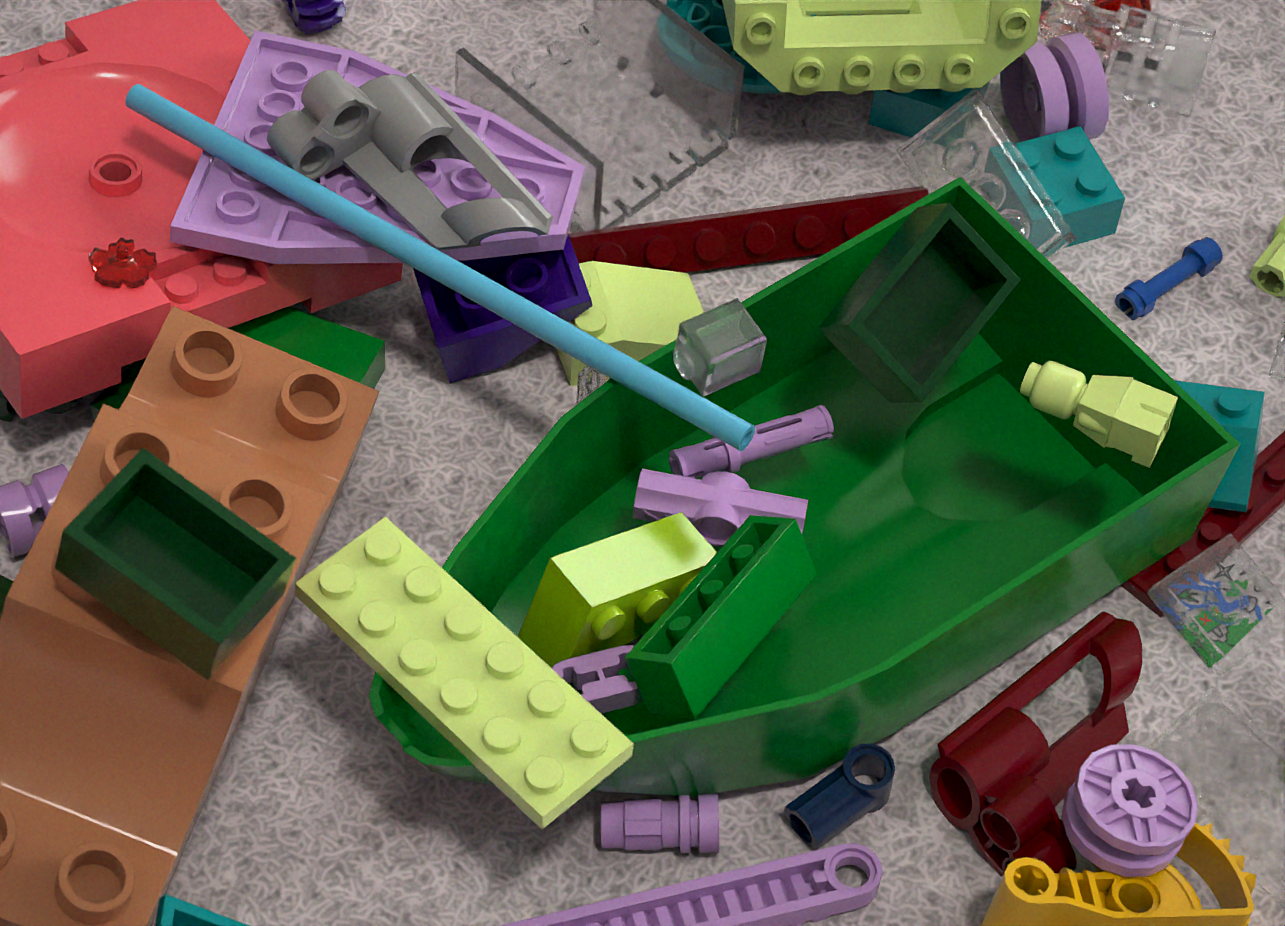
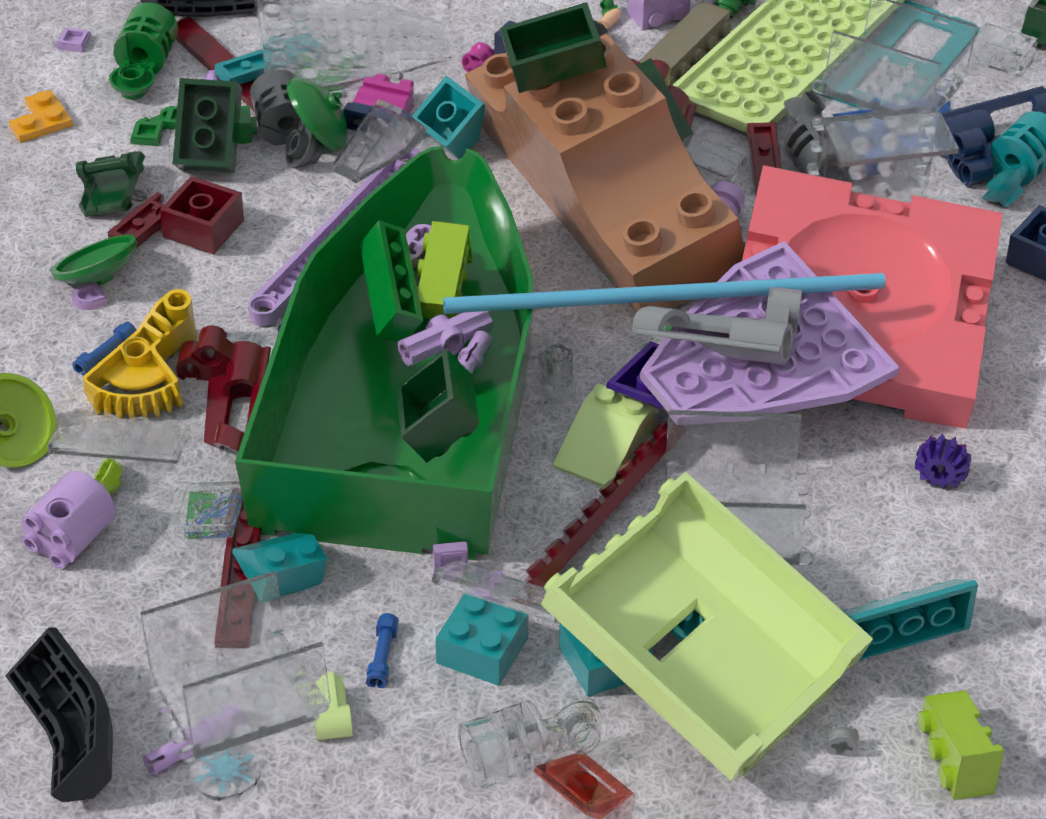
camera: 140 degrees right, 10 degrees down
(122, 264) = (784, 227): clear red plant -> none
(464, 672) = (453, 172): yellowish green plate -> none
(719, 347) = (498, 329): clear brick -> none
(1056, 88) = (536, 670): lavender wheel -> none
(1108, 410) = (304, 418): yellowish green piece -> none
(1129, 810) = (163, 359): lavender wheel -> none

